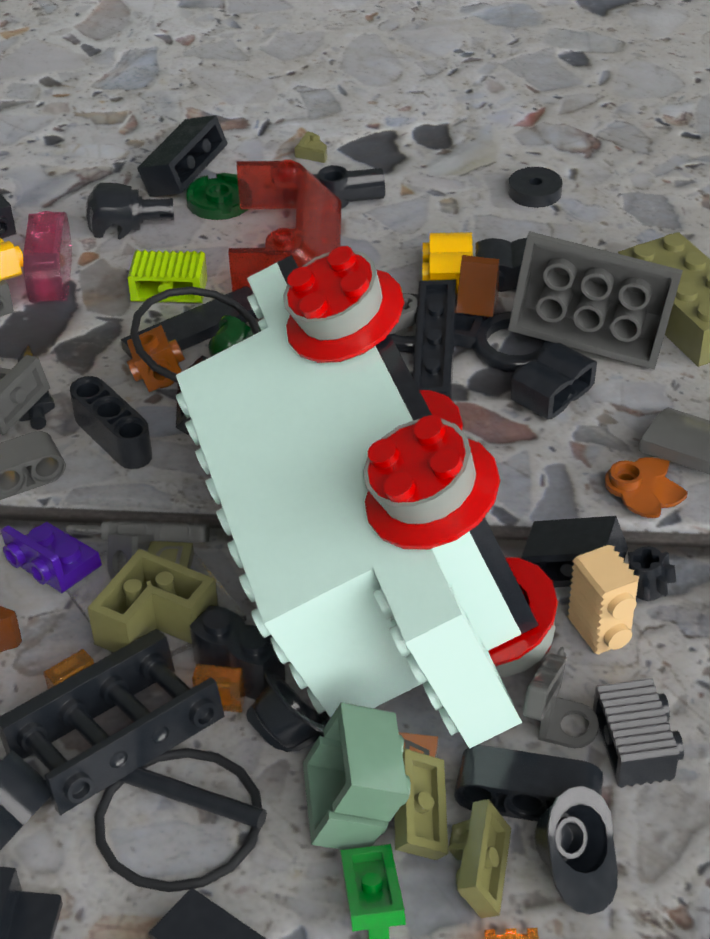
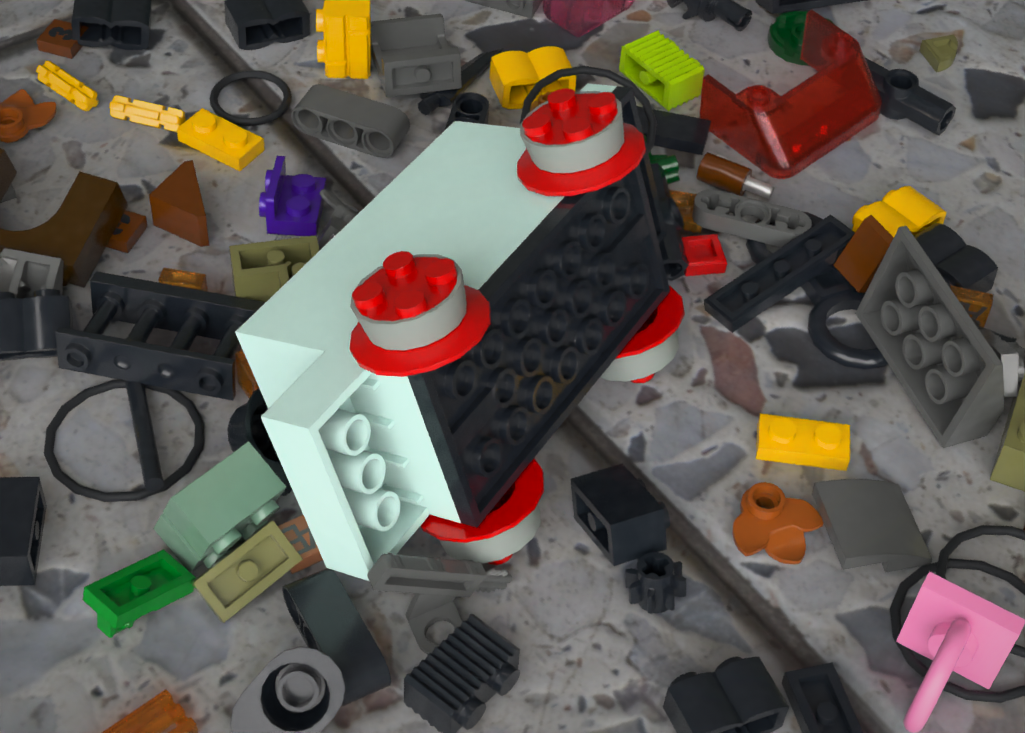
camera: 45 degrees right, 5 degrees up
(87, 344) = (517, 72): none -> yellow brick
(484, 849) = (231, 647): olive hinge -> none
(553, 380) = (830, 381): black brick -> none
(586, 429) = (803, 442): none -> yellow plate
(603, 599) = (574, 562): tan brick -> none

